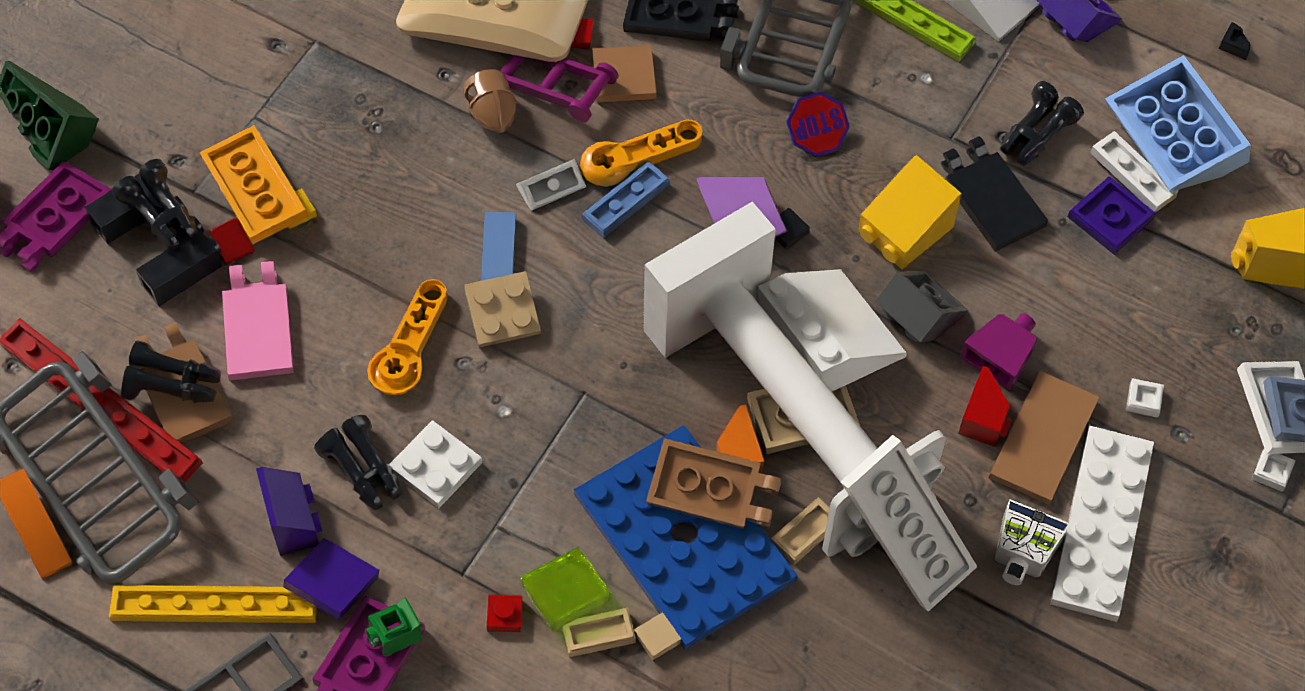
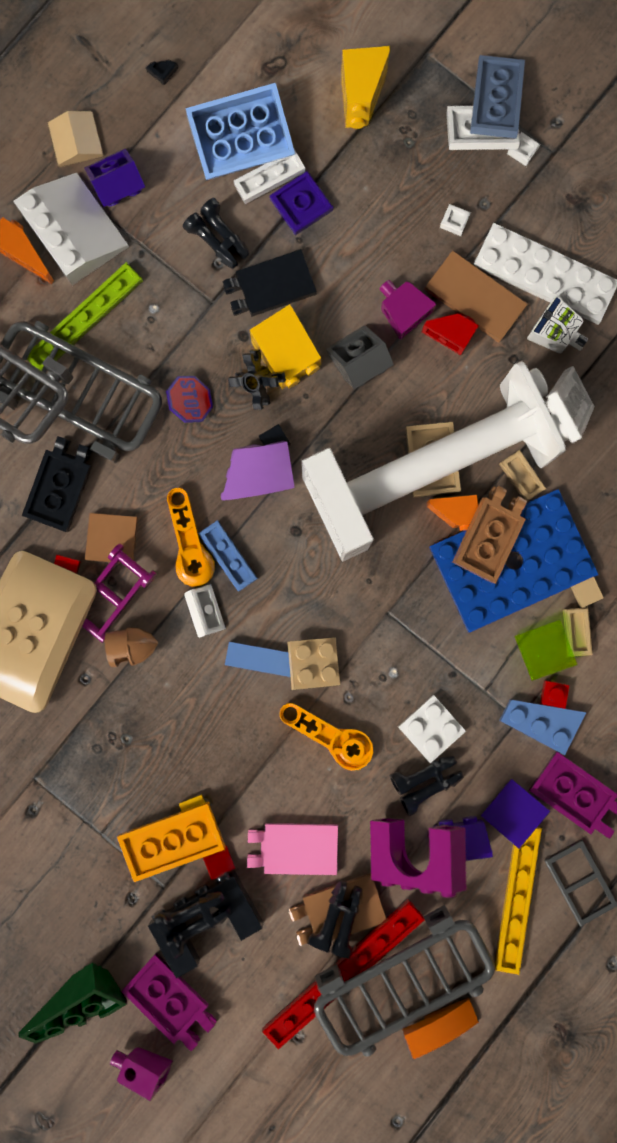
camera: 80 degrees left, 25 degrees up
(262, 442) = (392, 867): none -> magenta arch
(398, 637) = (562, 766): green window -> none
(461, 605) = (546, 724): none -> medium blue wing
(829, 325) = (371, 425): white slope -> none
(859, 186) = (256, 379): none -> black pin

